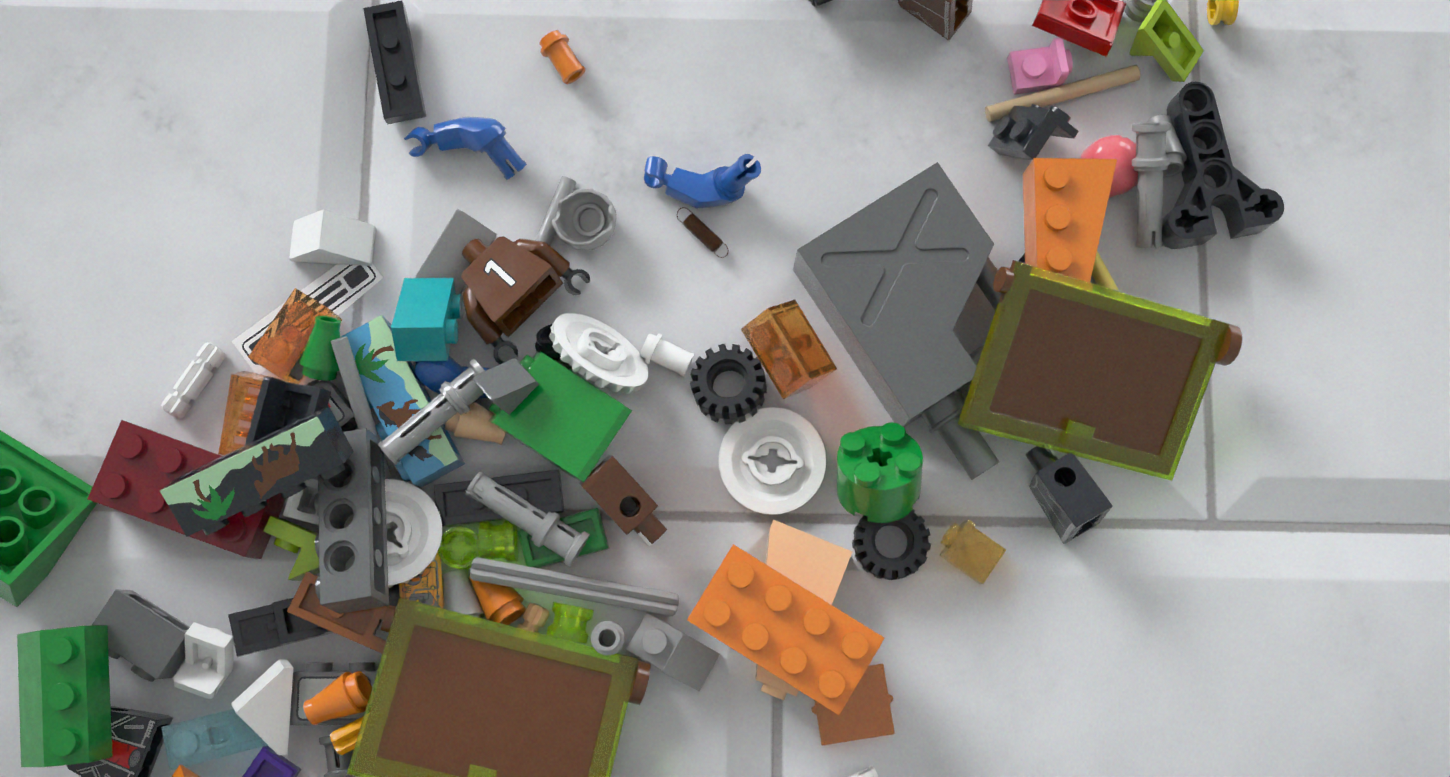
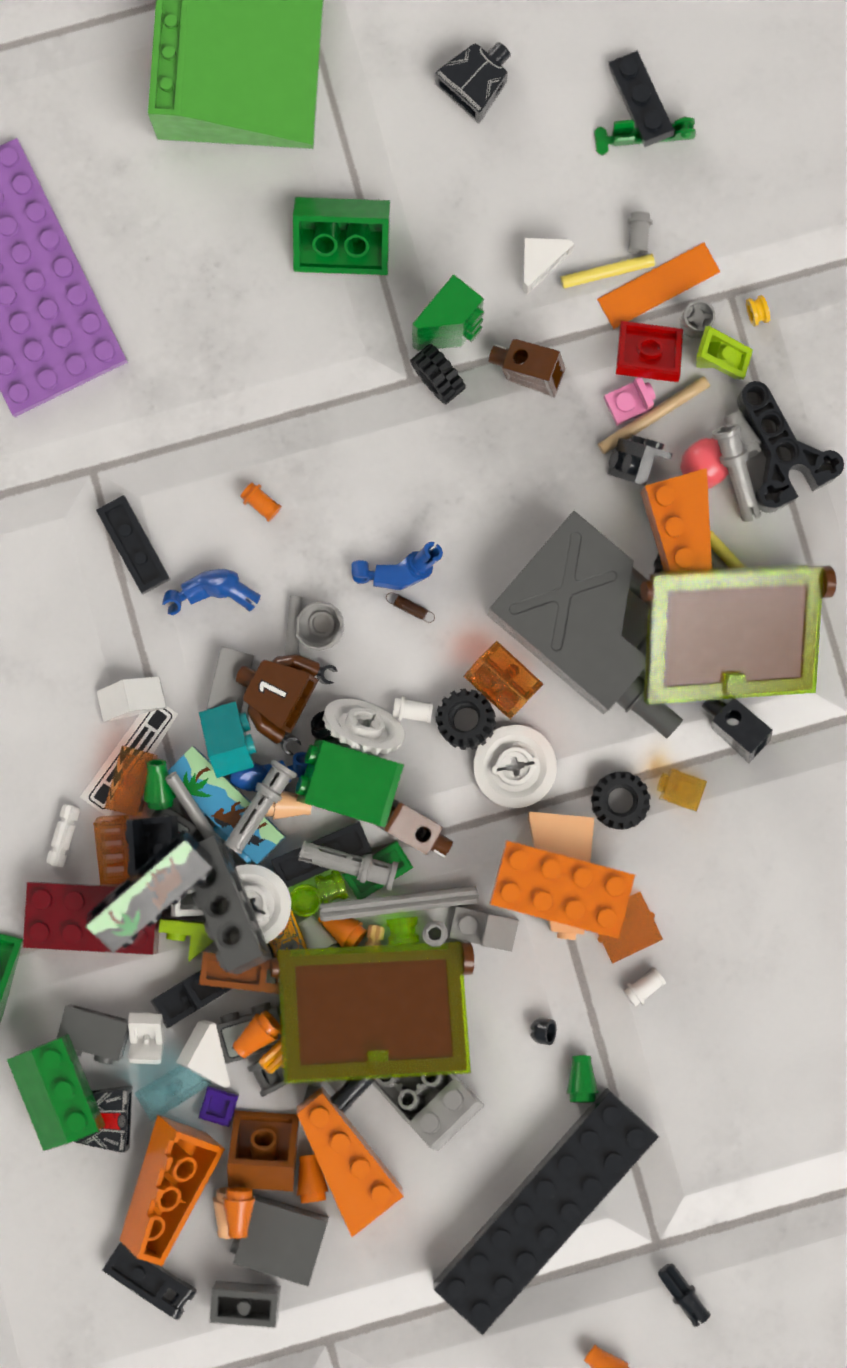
camera: 15 degrees left, 5 degrees up
(506, 384) = (306, 772): slope -> none
(879, 472) = (597, 753): green brick -> none

